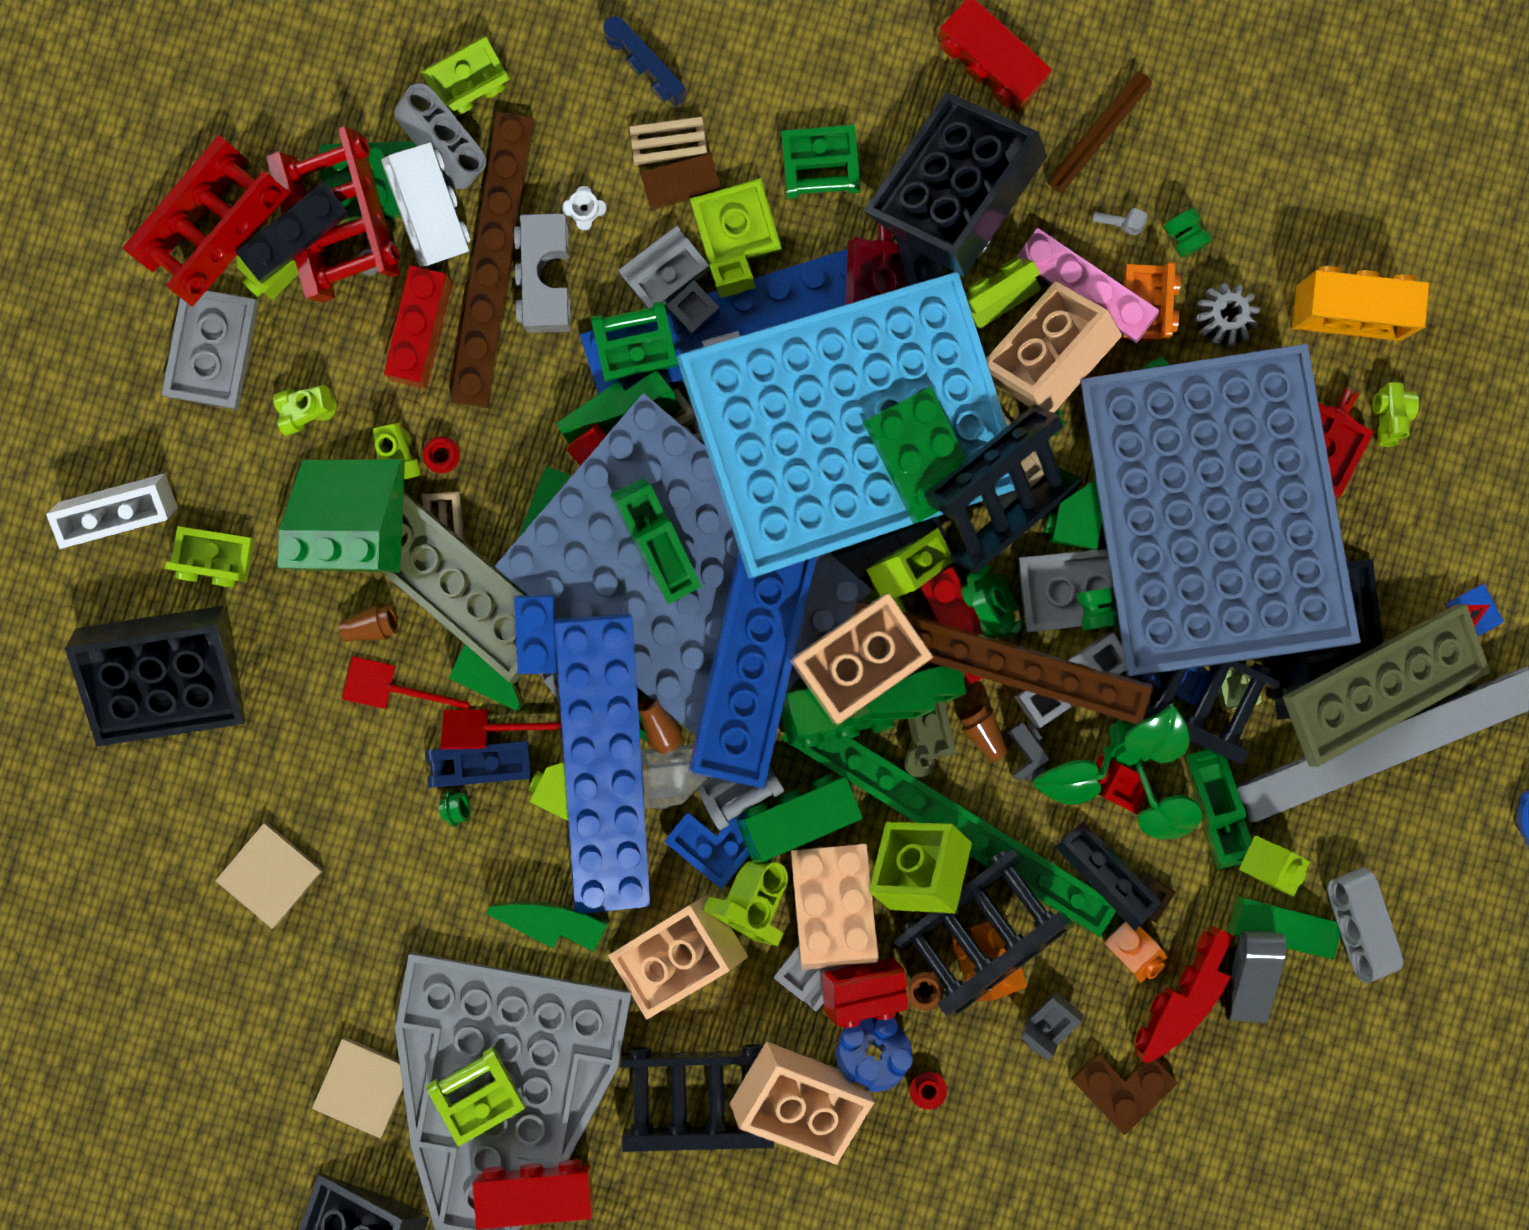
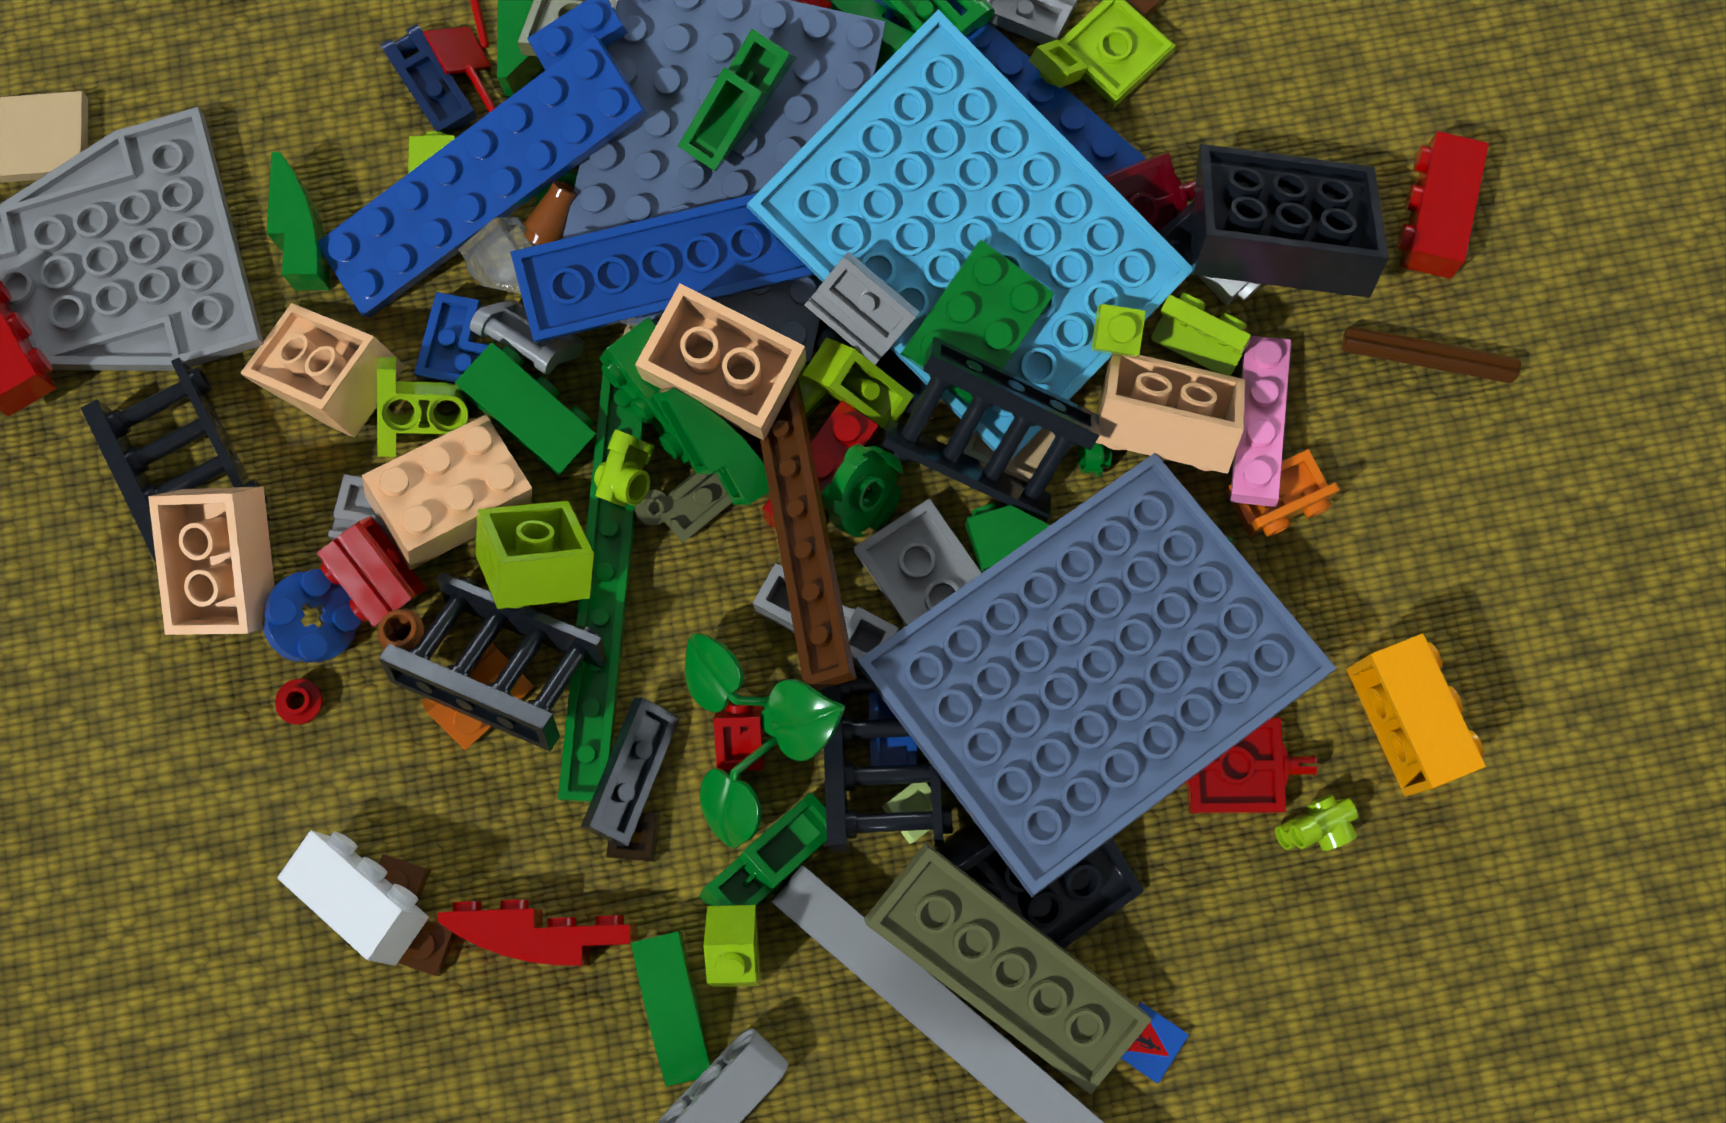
camera: 70 degrees right, 10 degrees down
(455, 808) = (371, 81): green plate -> none
(481, 1108) = (65, 247): lime plate -> none
(692, 307) = (1004, 39): dark grey plate -> none
(820, 149) = (1237, 86): green plate -> none
(873, 534) = (862, 308): none -> light grey plate
(889, 774) = (622, 475): none -> lime plate
(976, 354) = (1118, 330): none -> lime plate
(983, 730) = (721, 561): dark orange cone -> none
(1028, 742) = (734, 612): dark grey bracket -> none
(1050, 1025) = (431, 795): dark grey bracket -> none
(1097, 608) = (915, 599): green wheel -> none
(1100, 1114) = (354, 897): none -> white brick
(1131, 224) = (1354, 438): light grey hand -> none
(1137, 951) = (561, 852): orange bracket -> none
(1193, 239) = (1380, 497): green wheel -> none
(1234, 302) = (1325, 600): light grey gear -> none
(1255, 976) = (595, 992): dark grey beam -> none

